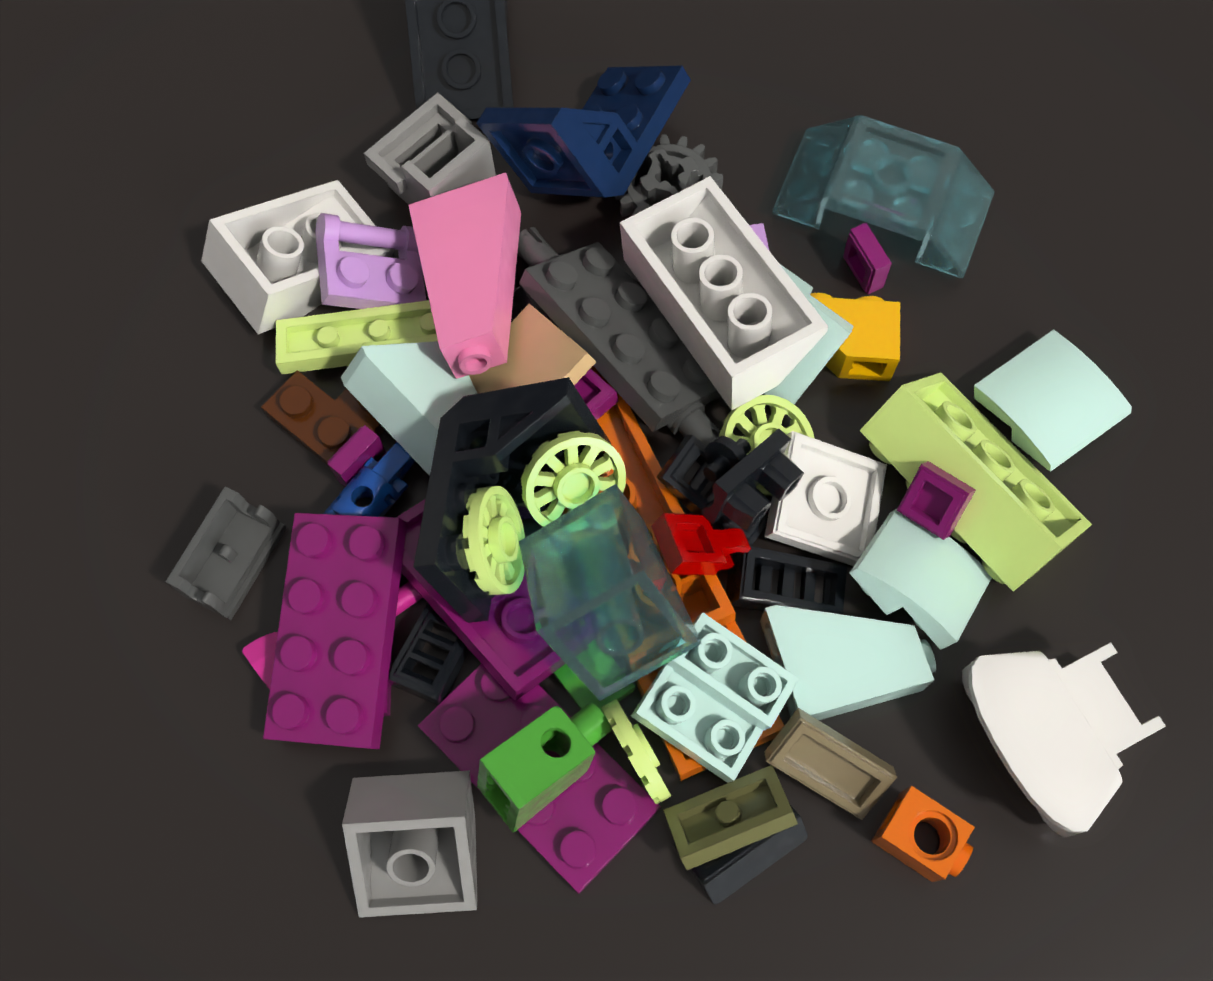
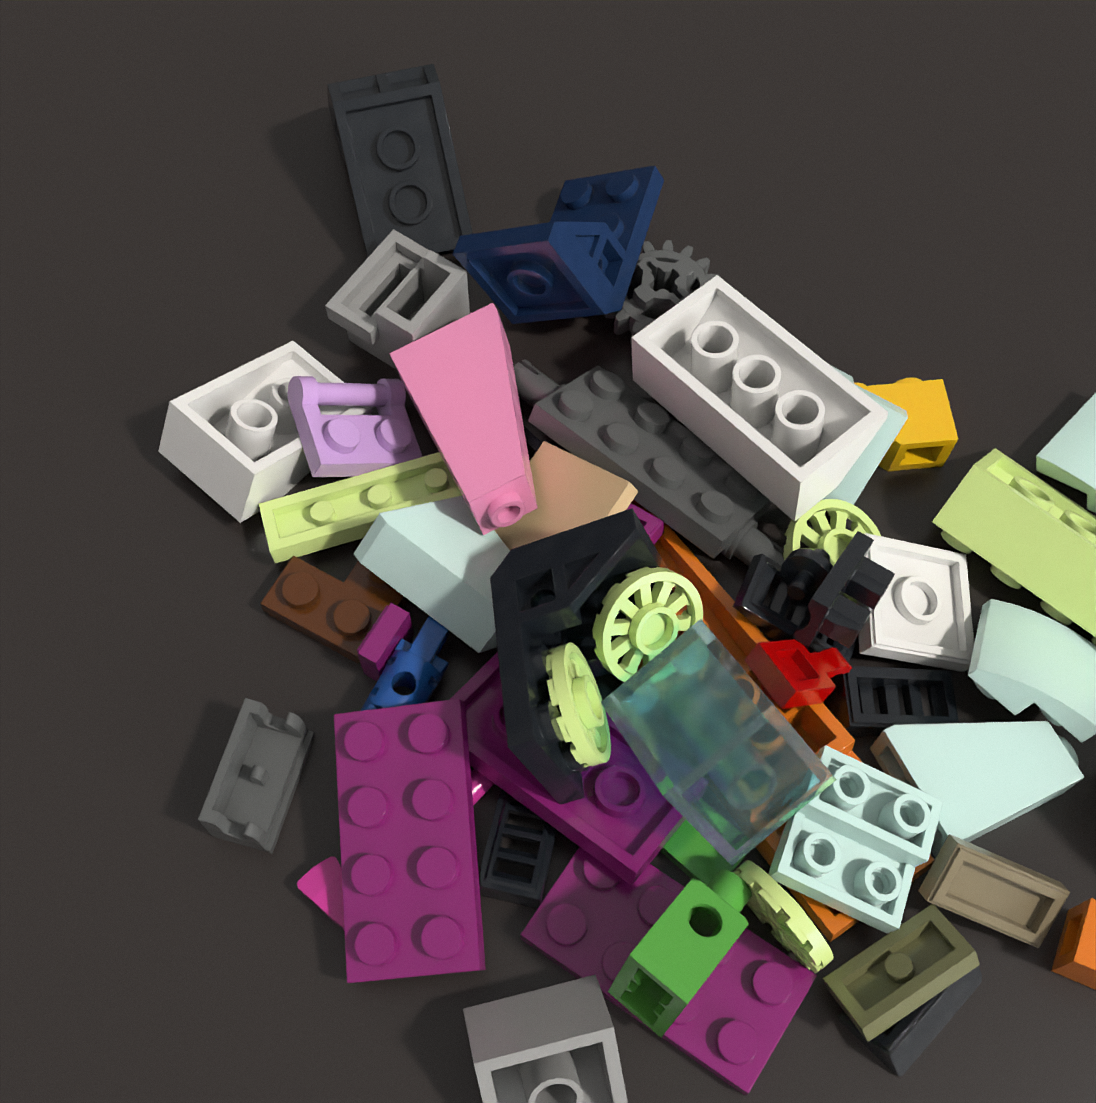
camera: 15 degrees left, 5 degrees down
(866, 258) = (891, 340): magenta tile -> none
(892, 183) = (895, 255): clear light blue slope -> none
(936, 500) = (1034, 582): magenta tile -> none

